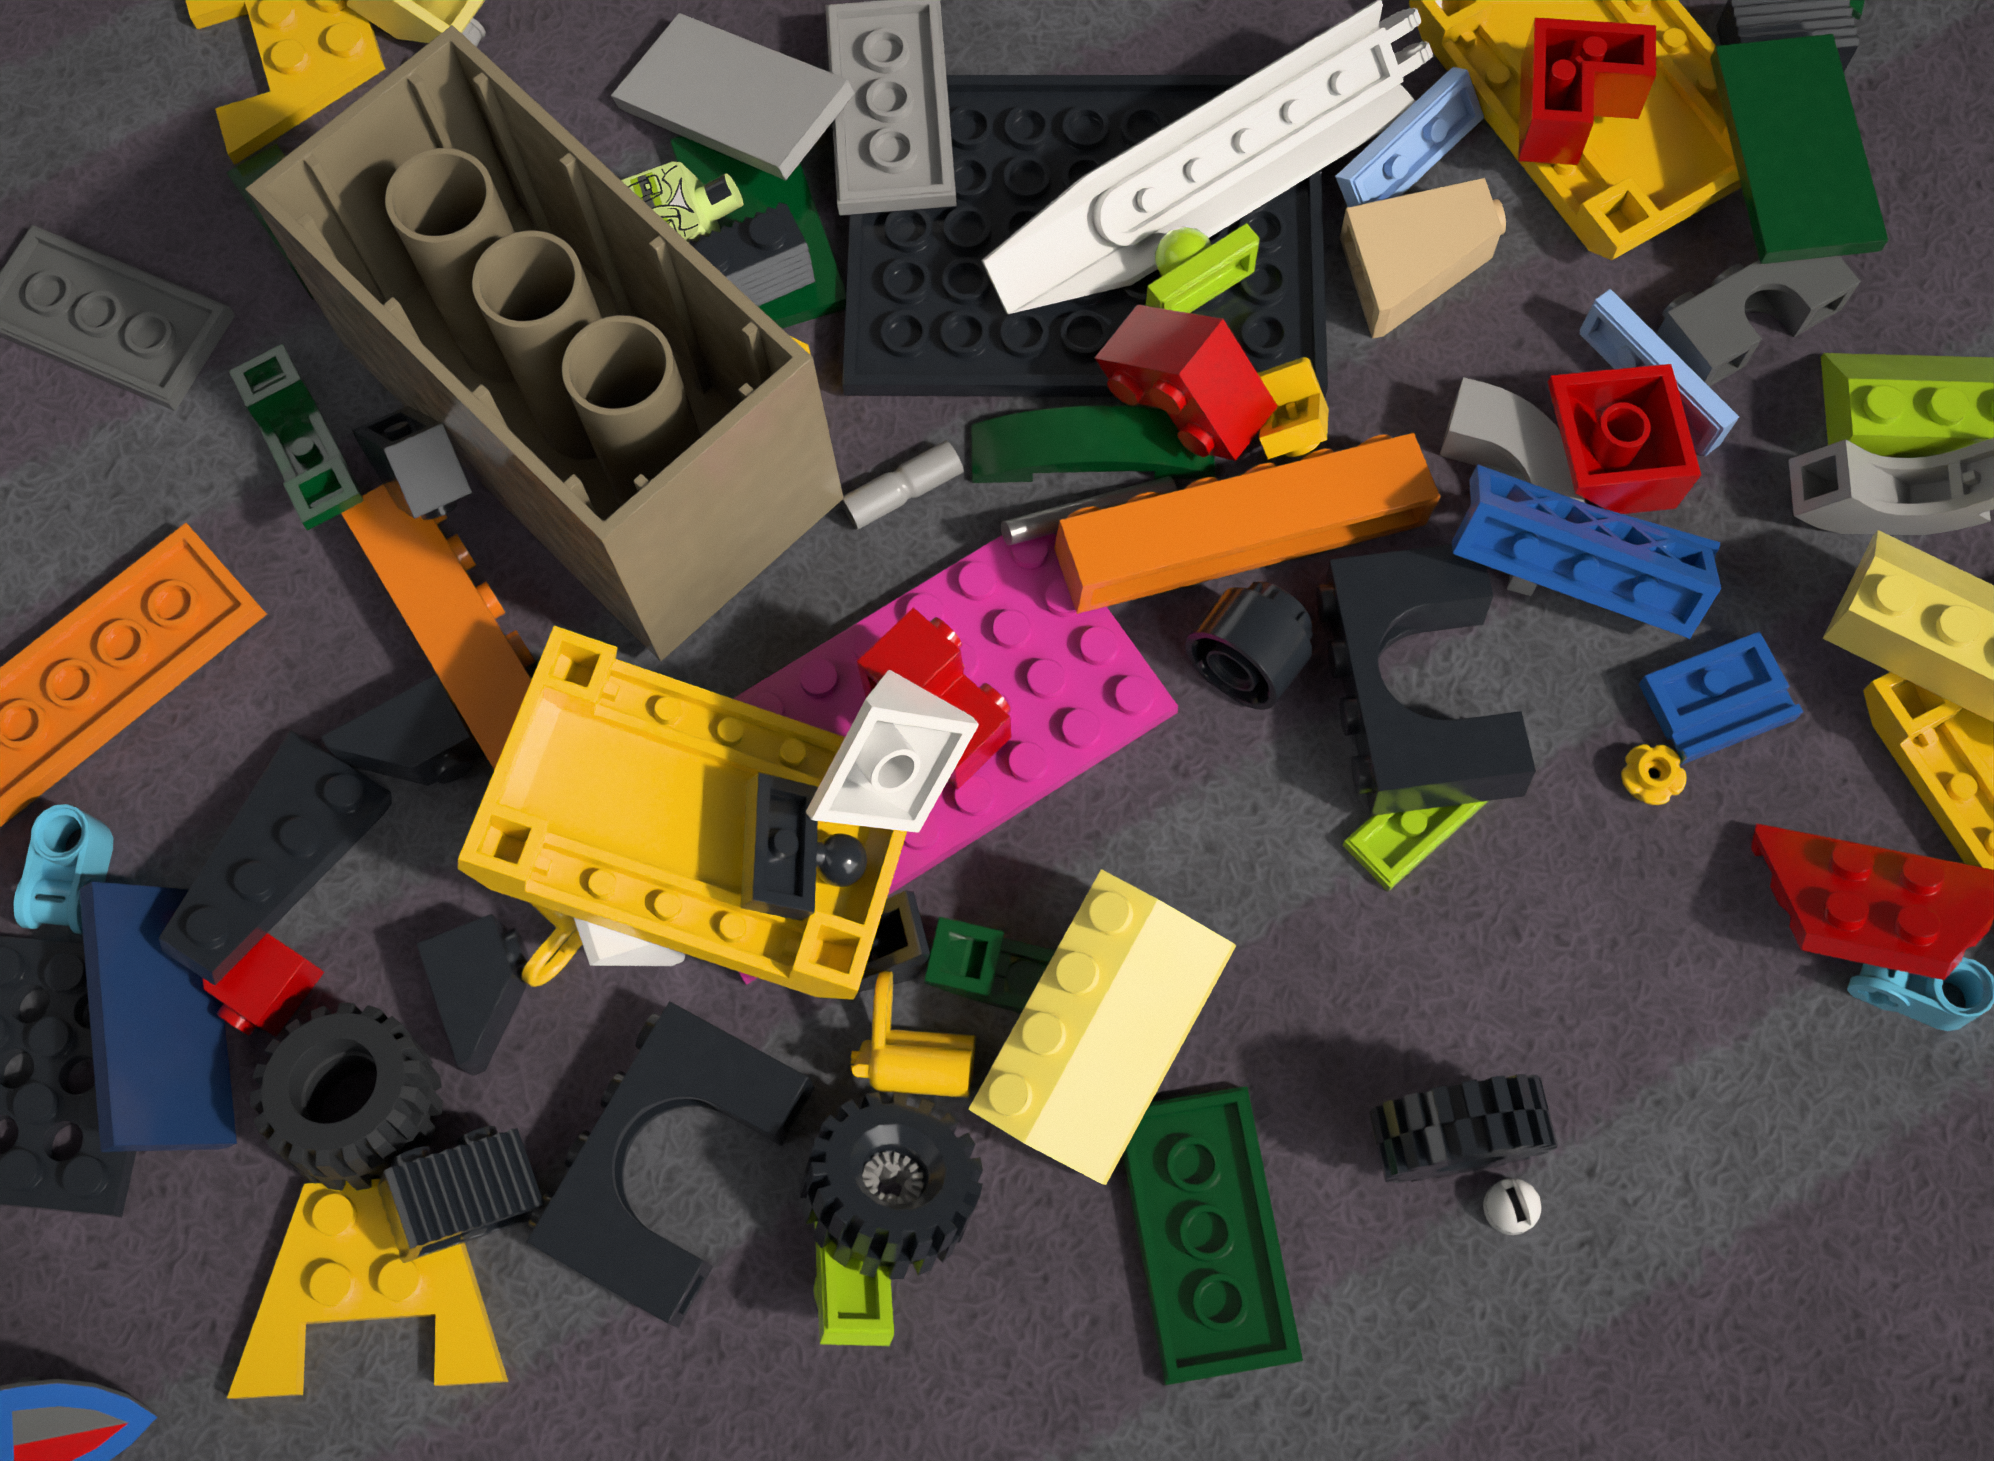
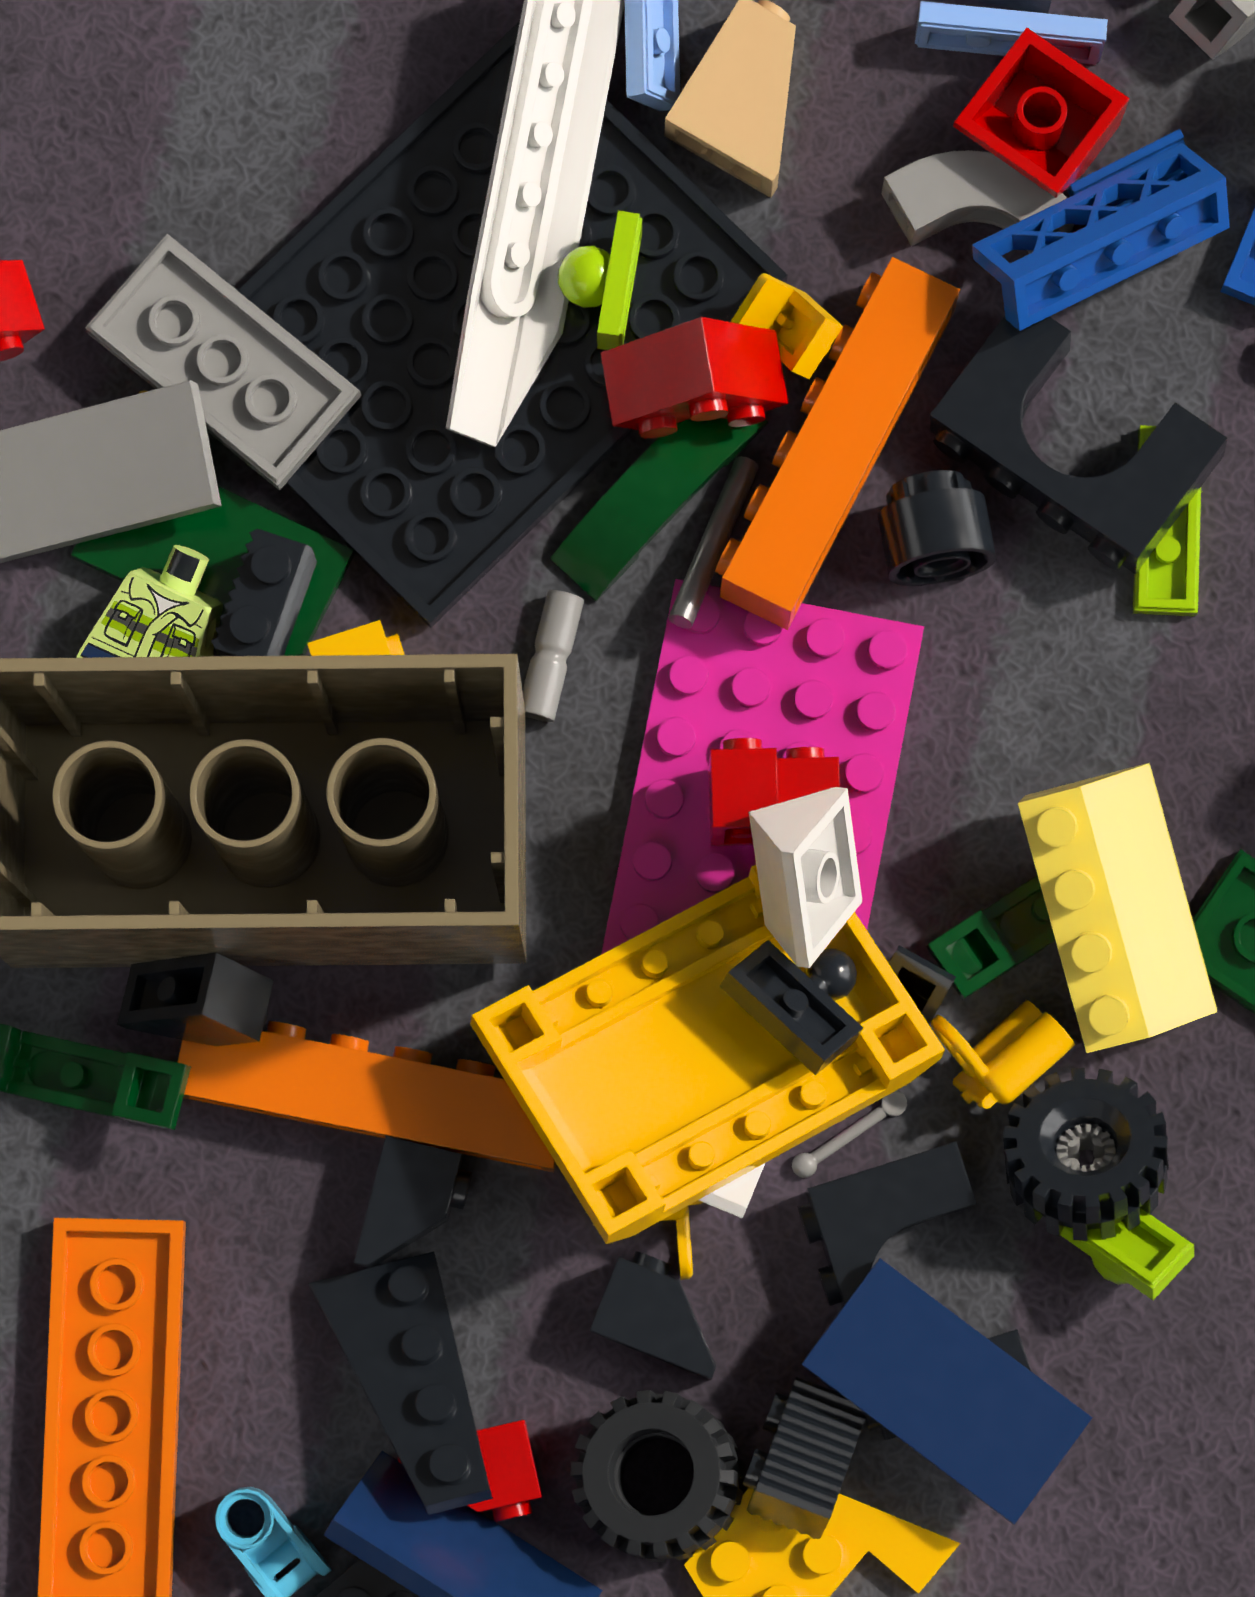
camera: 50 degrees left, 10 degrees up
(600, 1252) = (946, 1391): none -> dark blue tile
(805, 1013) = (805, 1164): none -> light grey hinge

